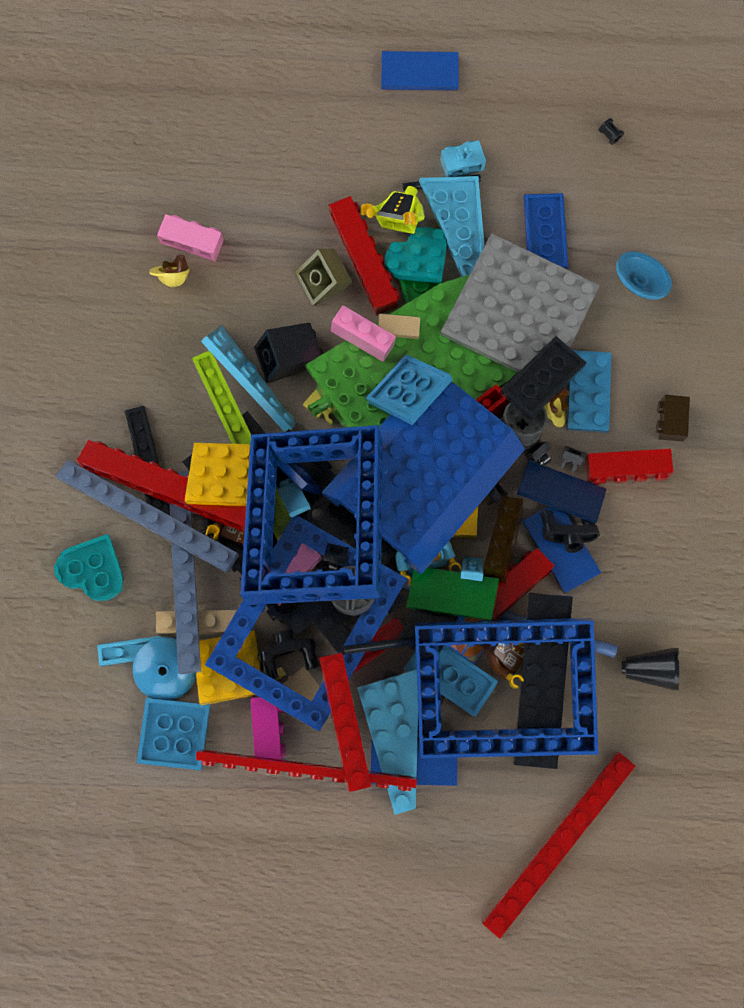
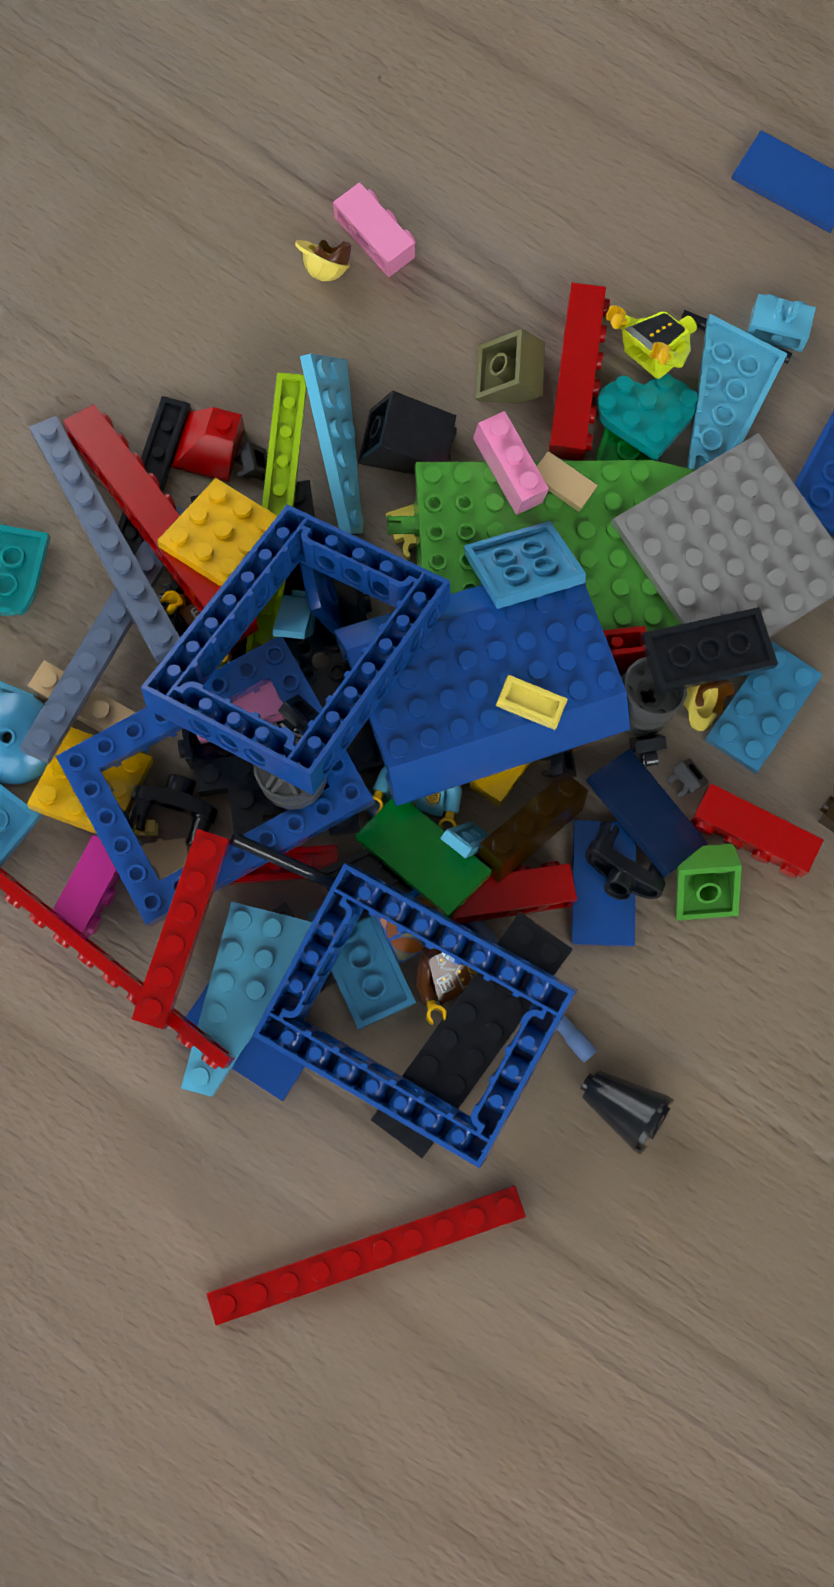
camera: 30 degrees right, 0 degrees up
(171, 423) = (210, 443): none -> red slope
(205, 418) = (253, 460): none -> black tile
(464, 468) = (531, 702): none -> light yellow tile
(622, 511) = (709, 883): none -> bright green slope

